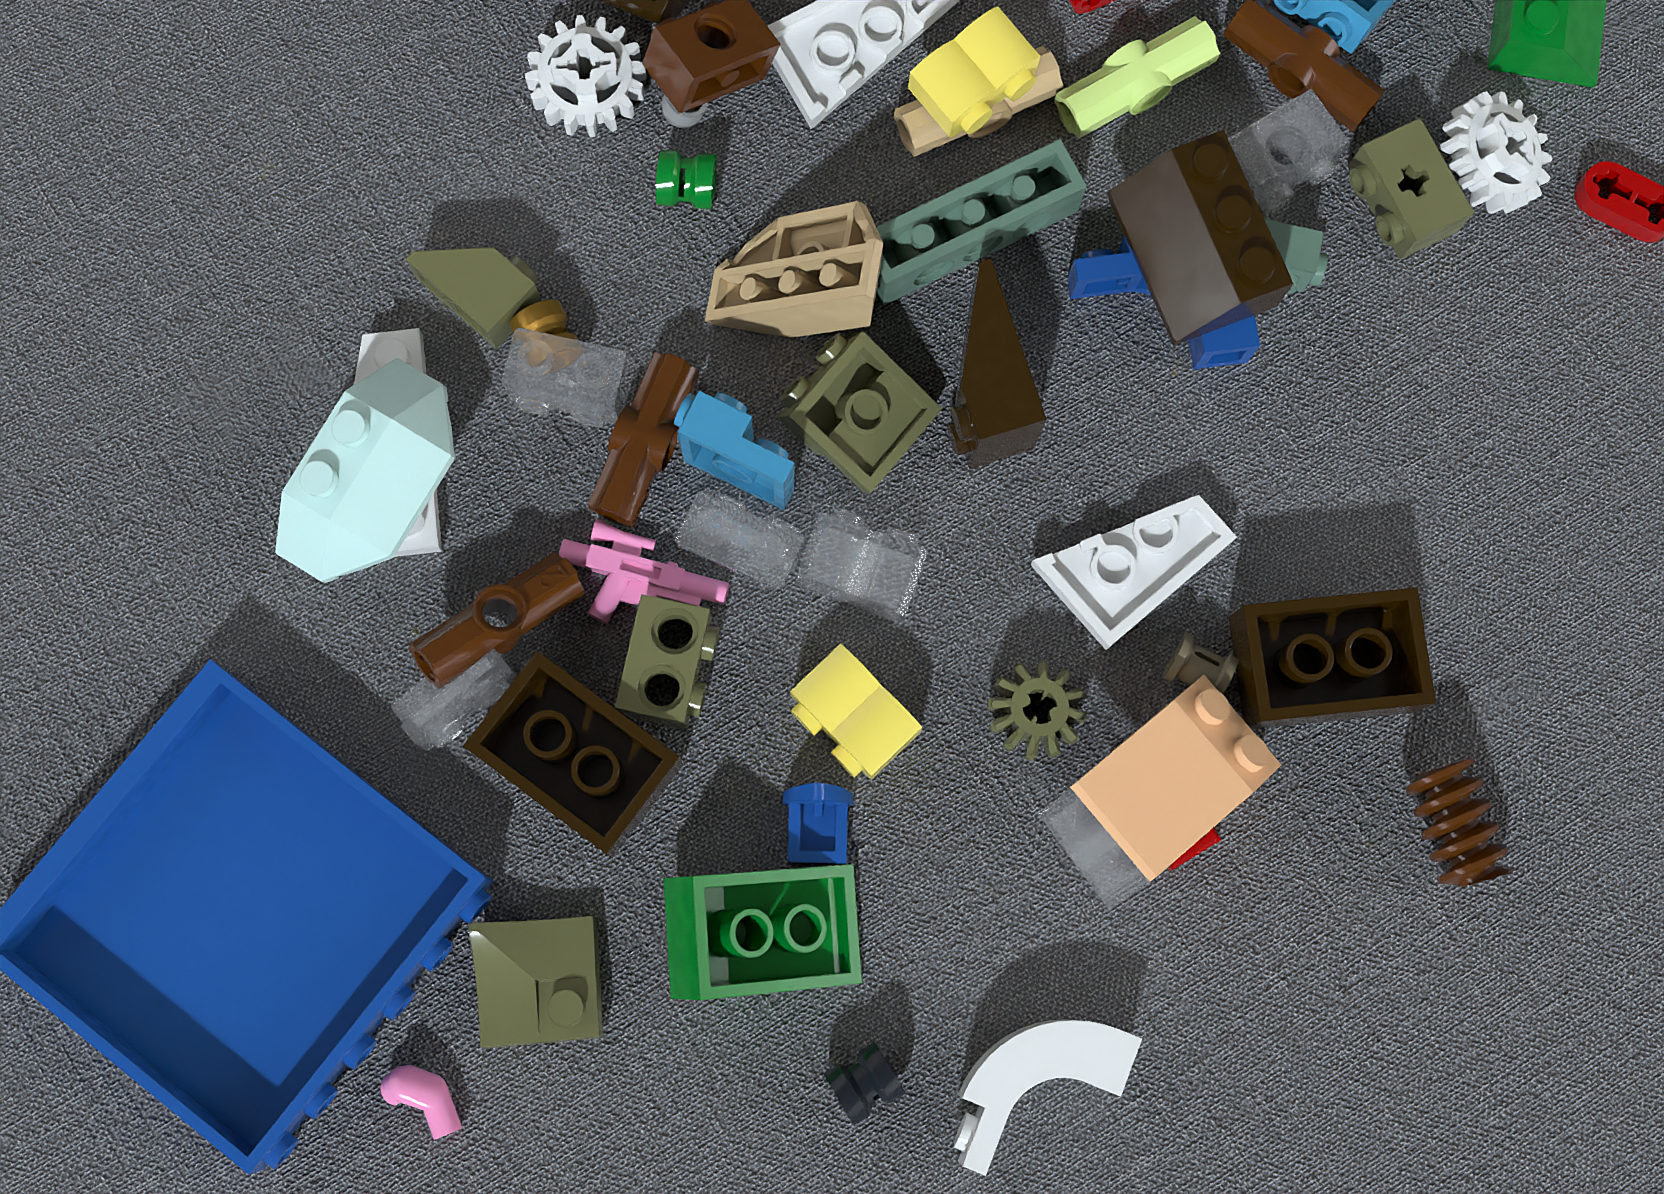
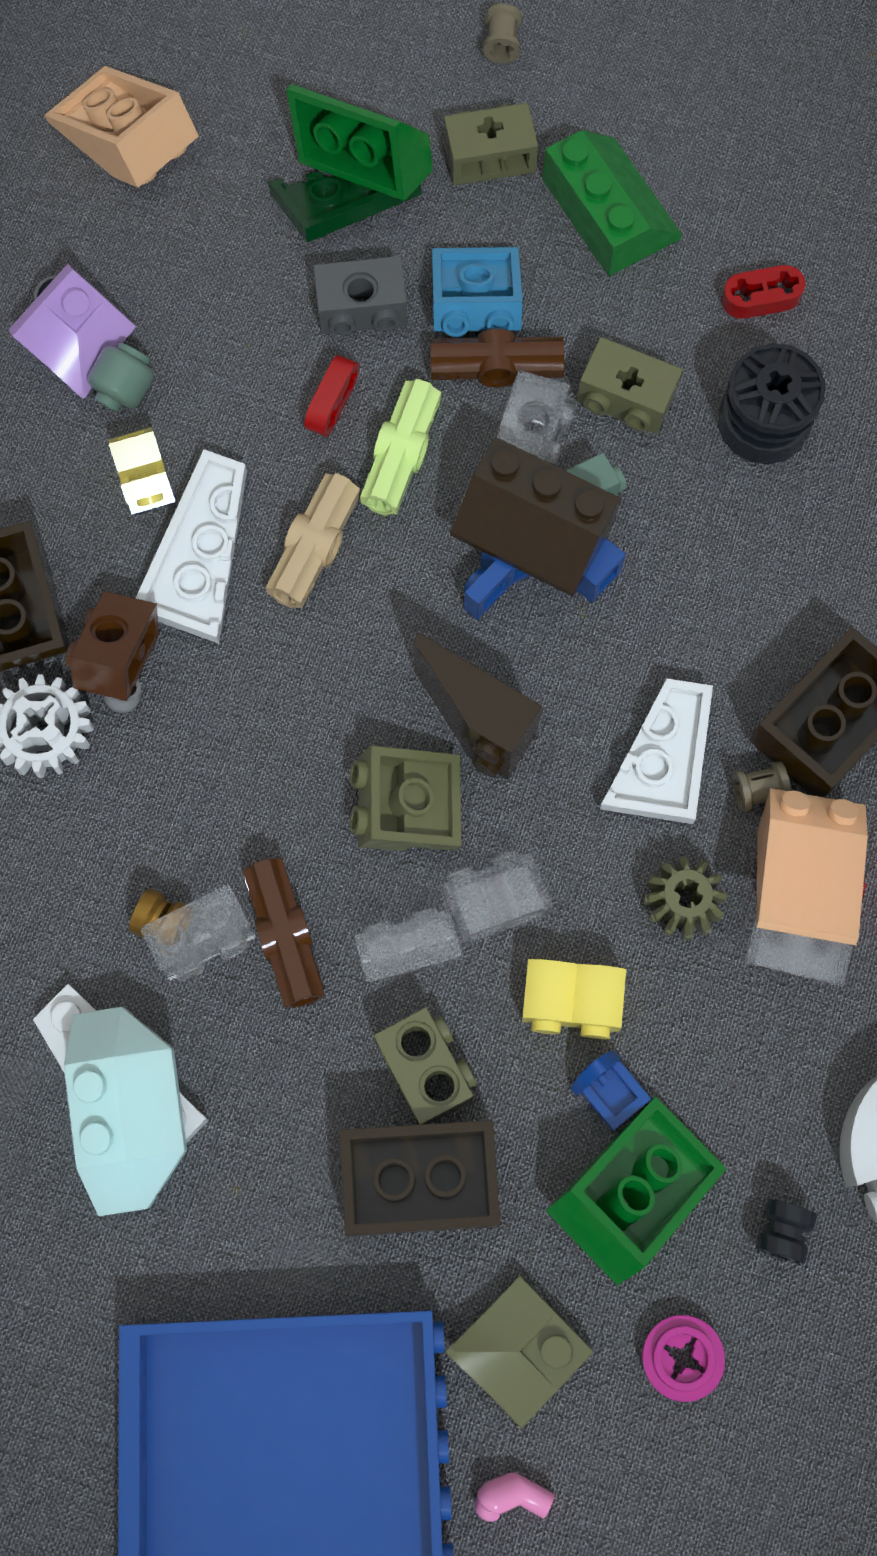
camera: 35 degrees left, 5 degrees down
(437, 715) = (299, 1206): clear bracket -> none
(467, 637) = (286, 1159): reddish brown piece -> none
(478, 286) = (87, 923): olive slope -> none
(632, 575) = (353, 1029): bright pink piece -> none
(661, 1138) = (707, 1351): none -> dark pink gear
(699, 179) = (175, 734): green wheel -> none
(720, 441) = (338, 894): dark azure plate -> none
(802, 275) = (300, 739): tan wedge -> none
(974, 73) = (302, 524): light yellow brick -> none
(977, 220) = (377, 621): sand green brick -> none
(1496, 152) = (662, 322): white gear -> none
(1534, 313) = (771, 403): none -> black wheel

